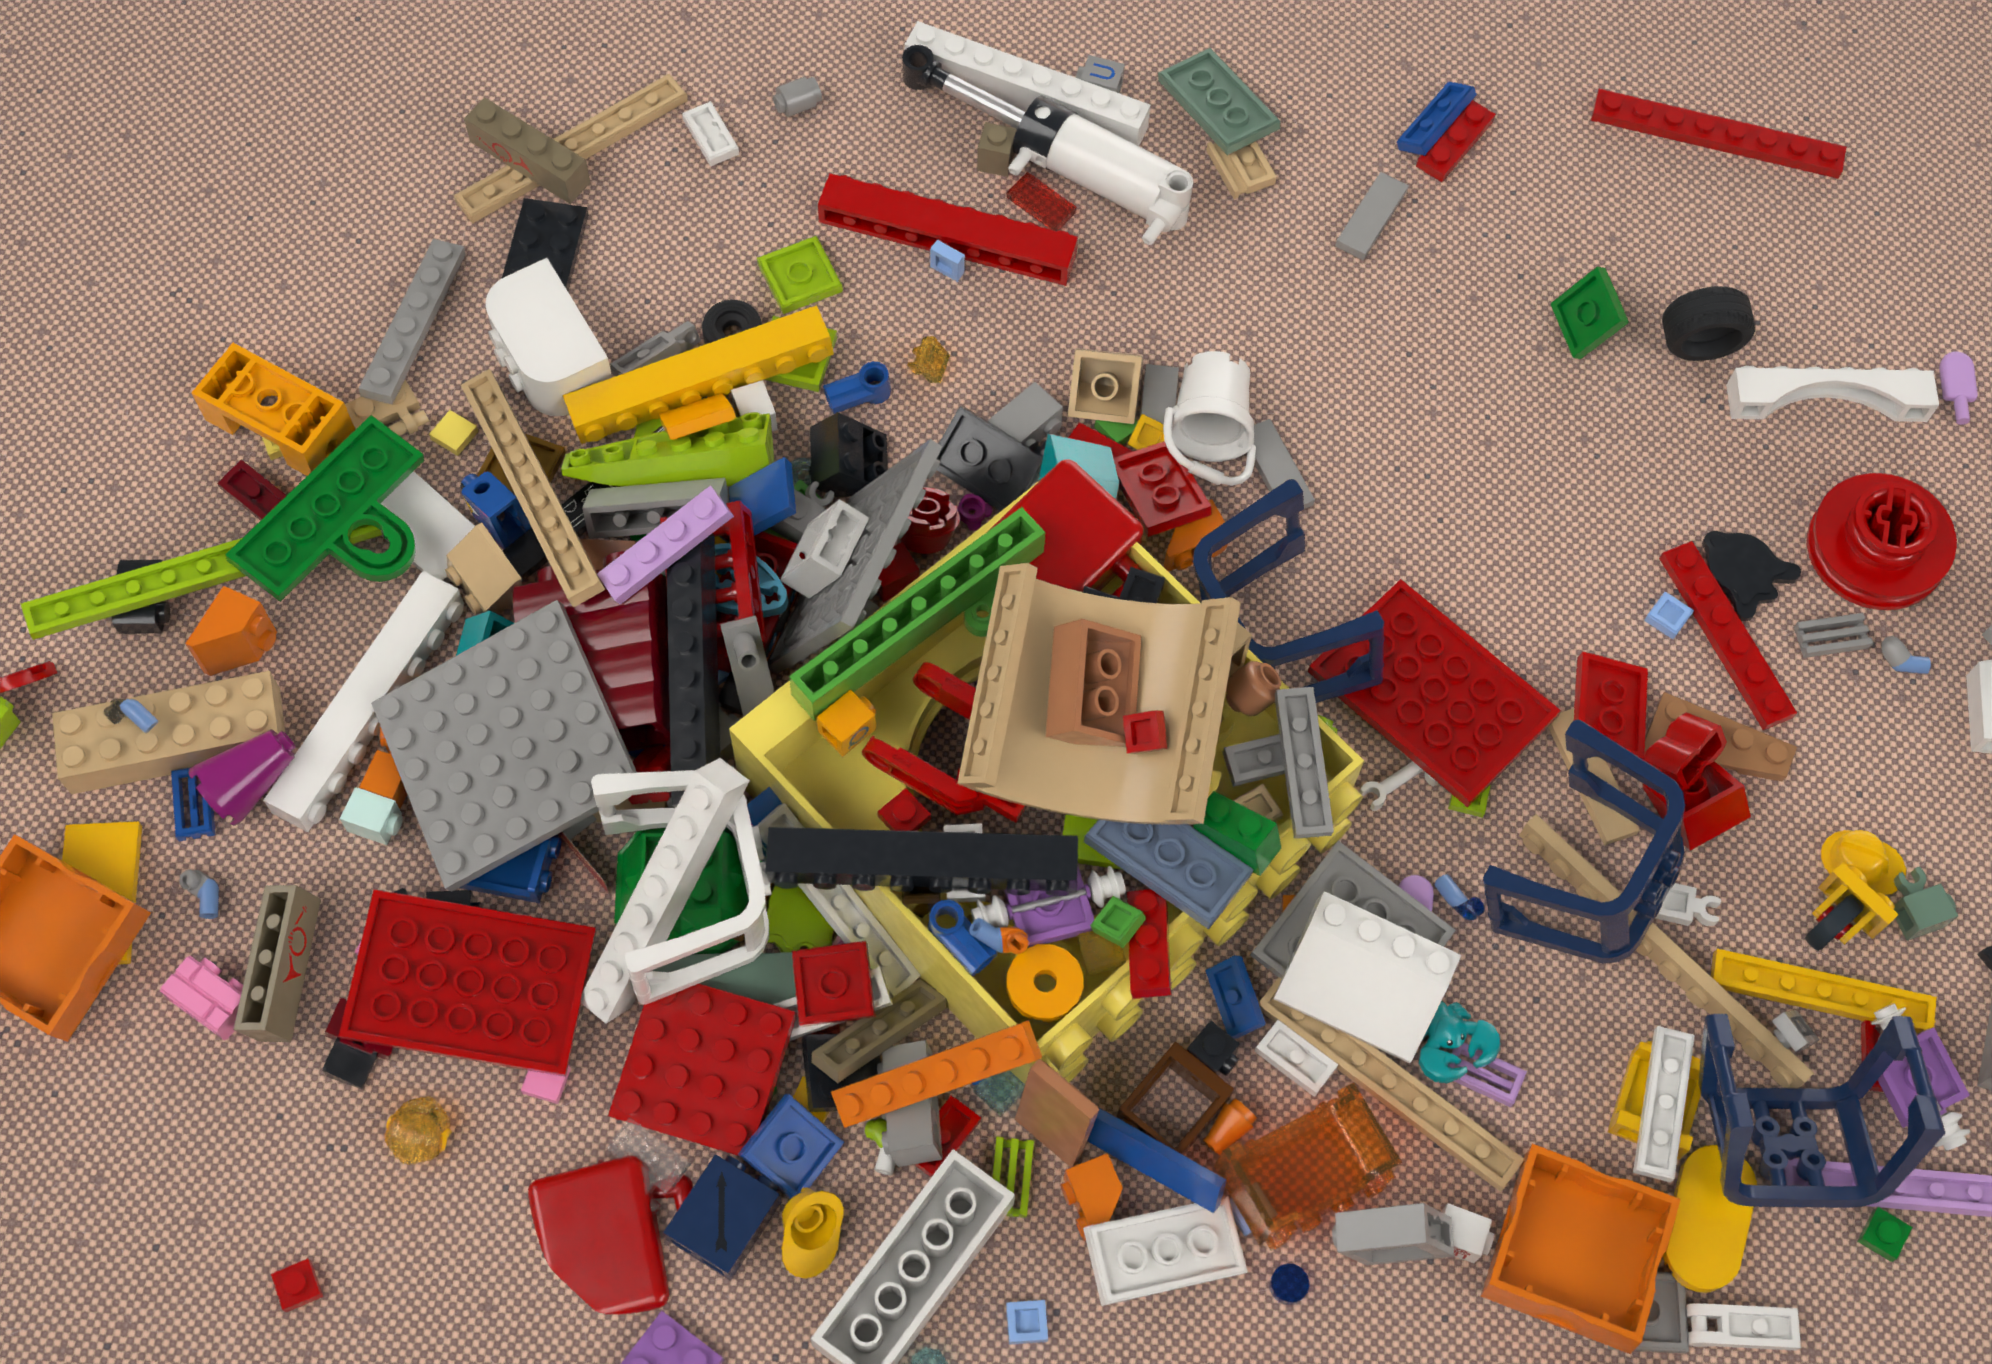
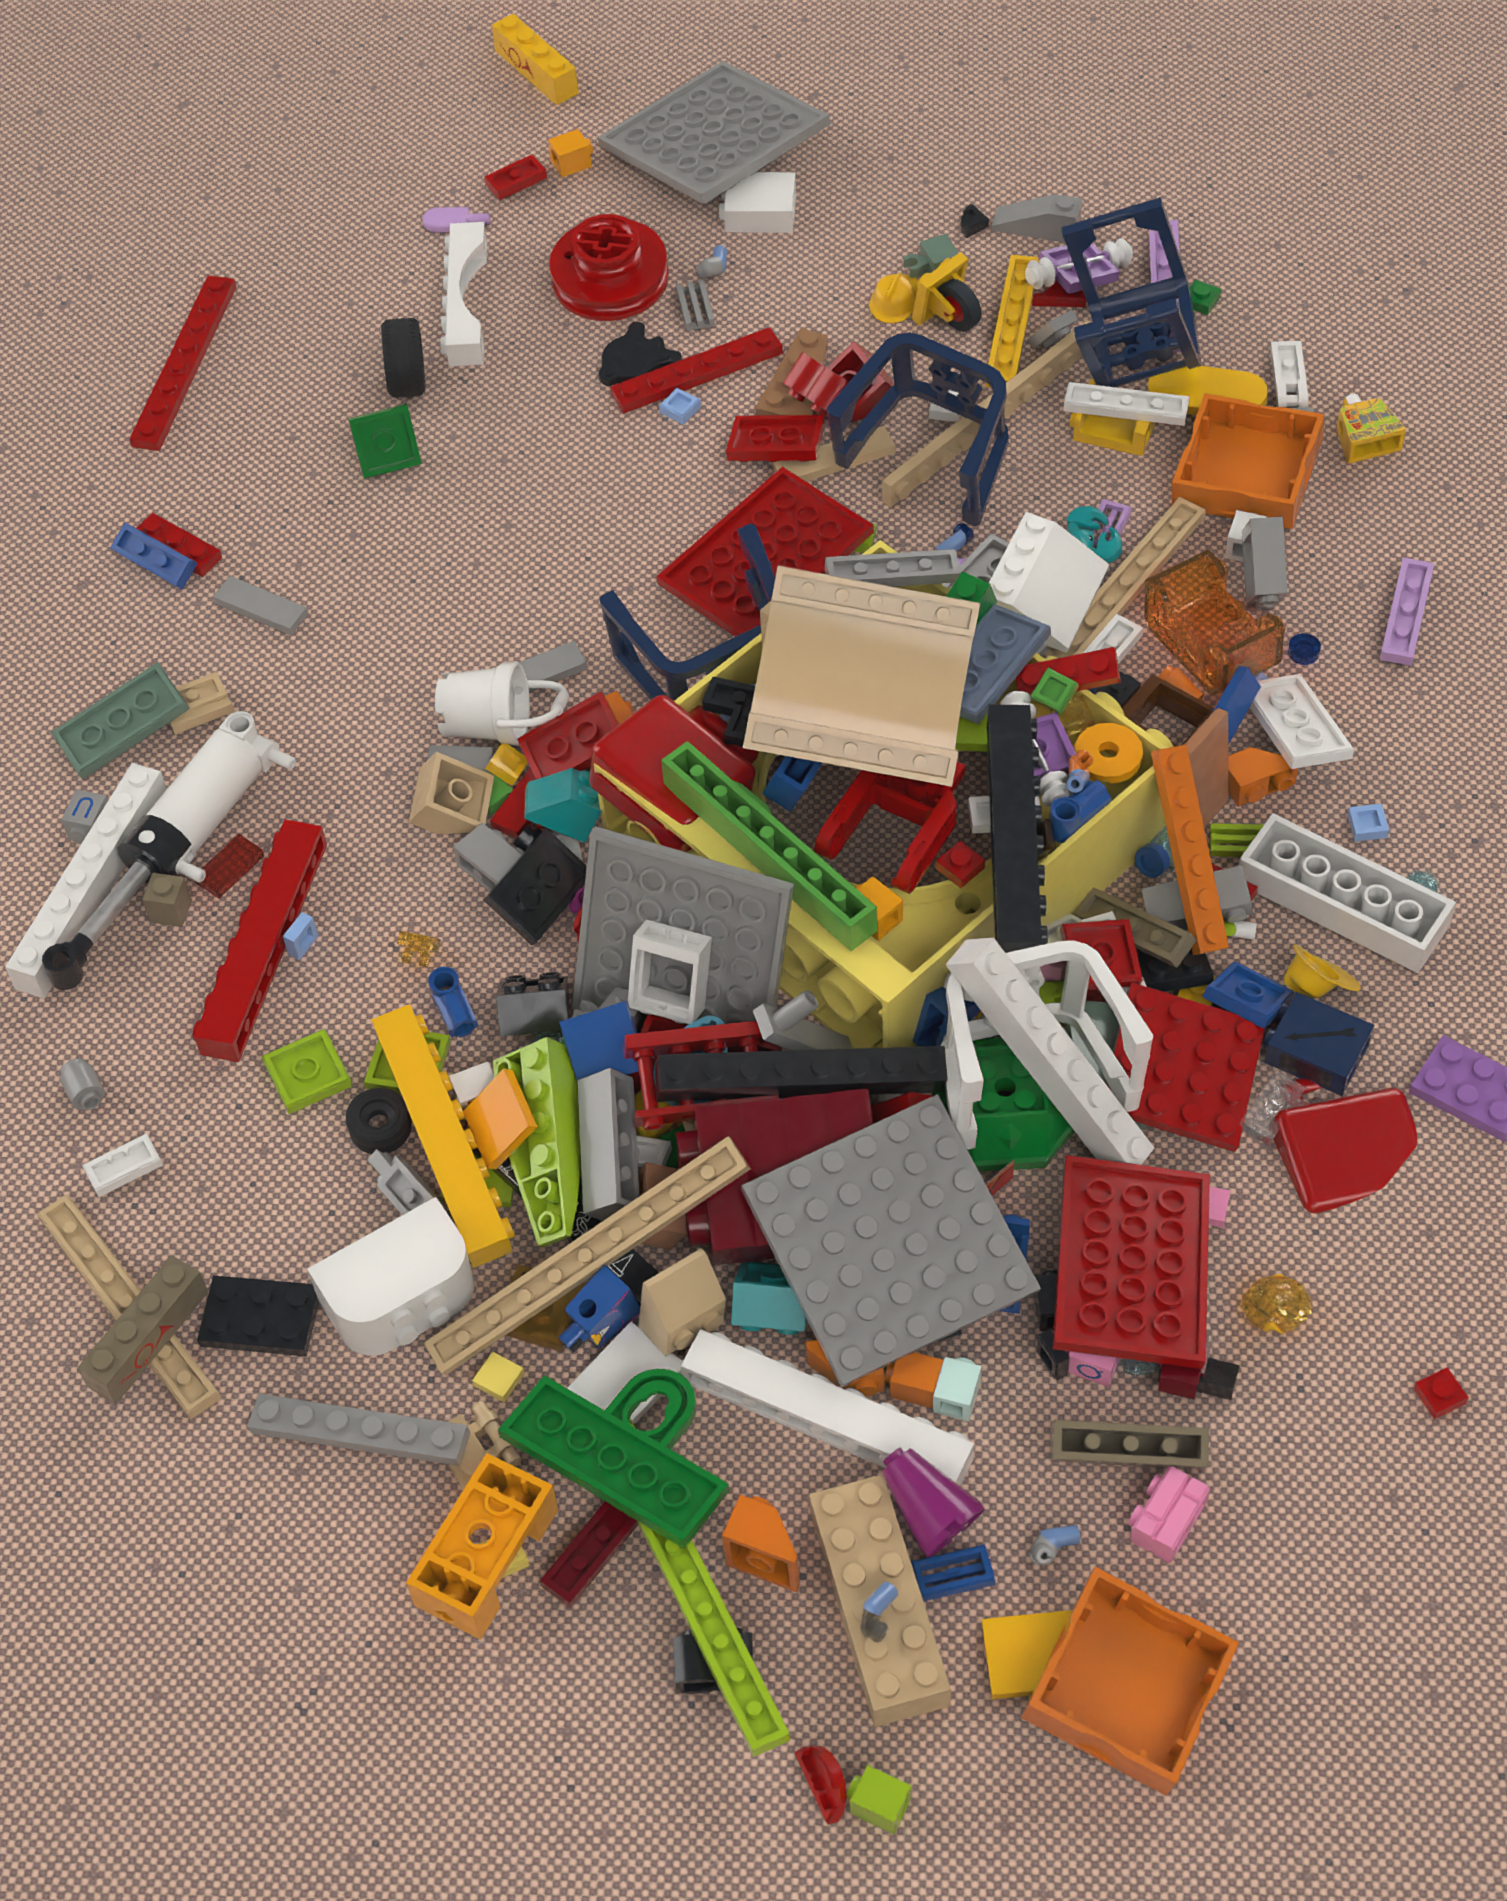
camera: 85 degrees left, 10 degrees down
(665, 545) = (687, 1079): lavender plate -> none
(1092, 683) = (847, 694): nougat slope -> none
(1145, 732) = (891, 651): red plate -> none

